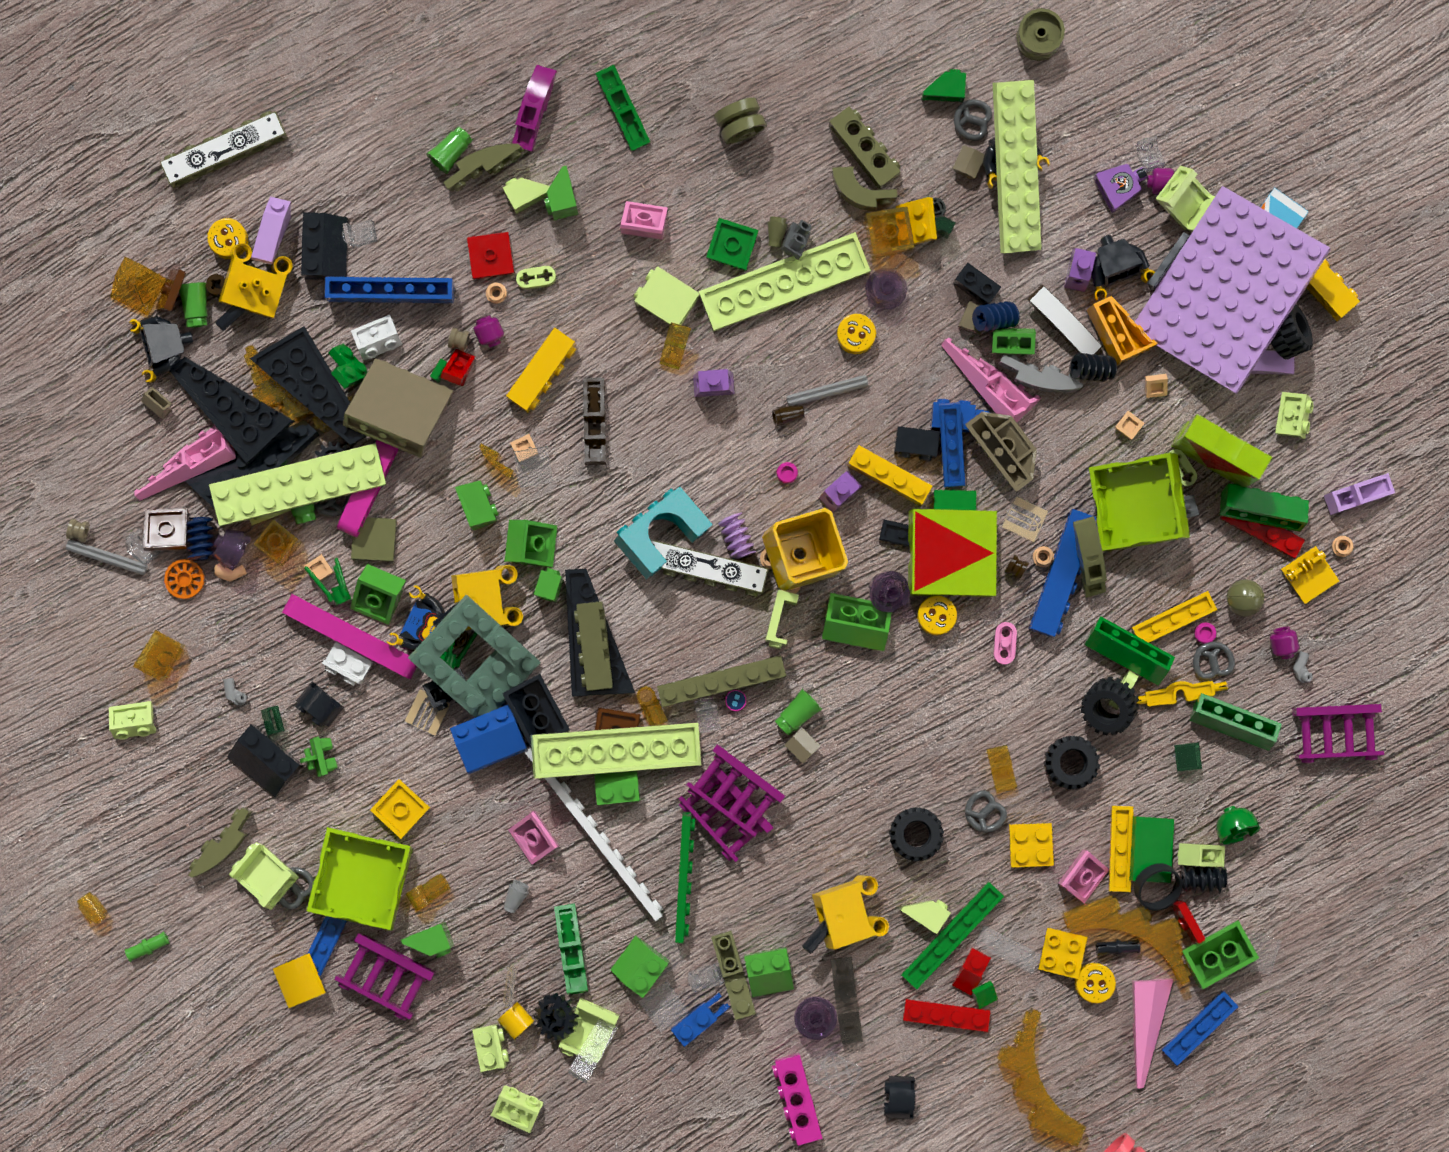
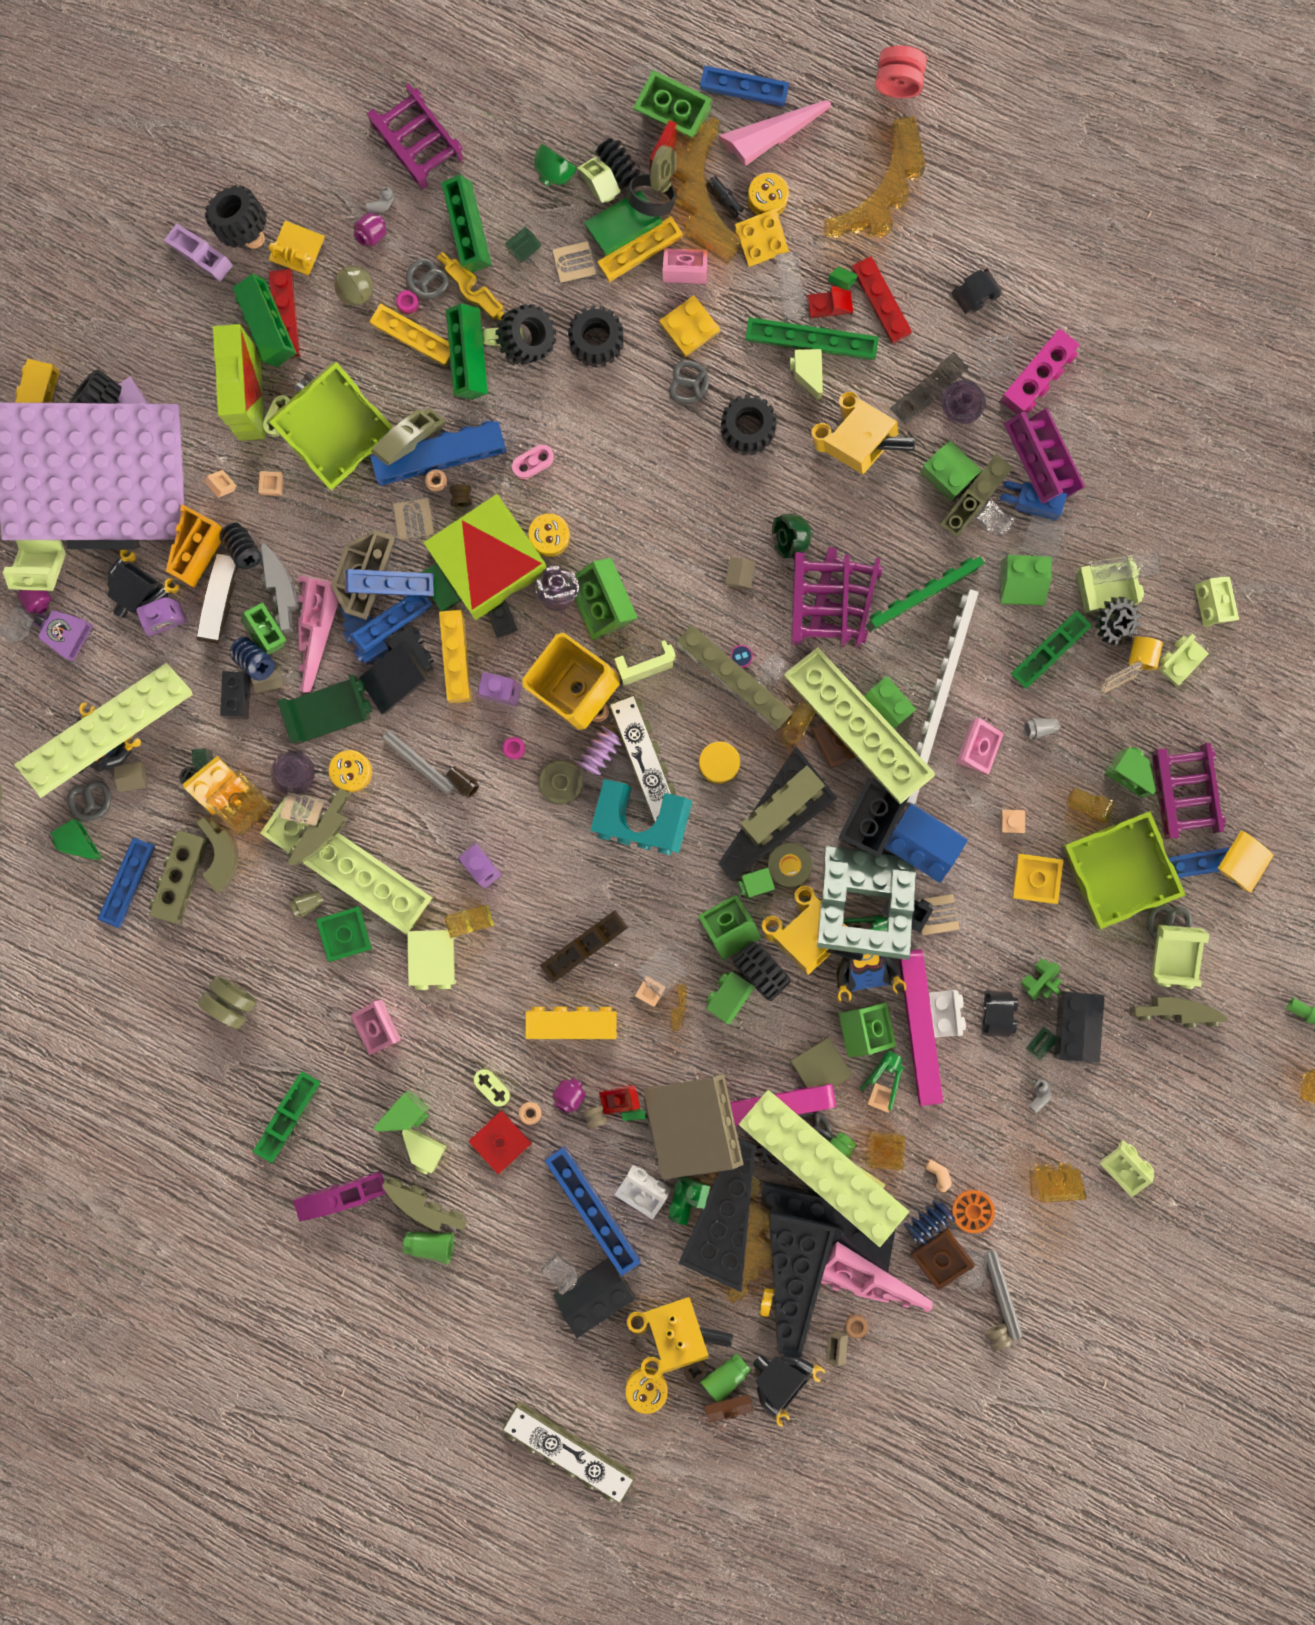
camera: 120 degrees left, 0 degrees up
(136, 286) = (745, 1442): clear yellow slope -> none
(162, 429) = (856, 1326): none -> medium nougat tile
(228, 373) = (766, 1302): none -> yellow tile
(230, 548) = (919, 1188): clear purple cone -> none
(271, 230) = (612, 1355): lavender slope -> none
(458, 822) = (1012, 821): none -> light nougat plate
(478, 542) = (761, 971): none -> black tyre
(546, 623) = (789, 865): none -> olive tile
(663, 624) = (719, 762): none -> yellow head
(732, 1038) = (1044, 455): none -> magenta fence
(735, 491) = (560, 782): none -> olive tile
(796, 239) = (301, 880): dark grey hips -> none
(798, 712) = (715, 595): bright green plant -> none
(803, 807) = (792, 534): none -> dark green cylinder
(820, 272) = (317, 838): none -> olive slope
(850, 276) = (301, 809): none -> clear piece
(889, 105) = (126, 882): none -> blue tile
(905, 415) = (393, 677): none -> black tile
(918, 346) = (325, 710): none -> dark green panel
(981, 461) = (388, 583): none -> plate
(1001, 769) = (642, 393): clear yellow slope -> none
(1147, 789) = (574, 262): none -> piece
(1170, 907) = (662, 168): none -> olive tile
(1294, 415) = (166, 352): yellowish green bracket -> none
(1379, 542) = (235, 216): none -> black tyre

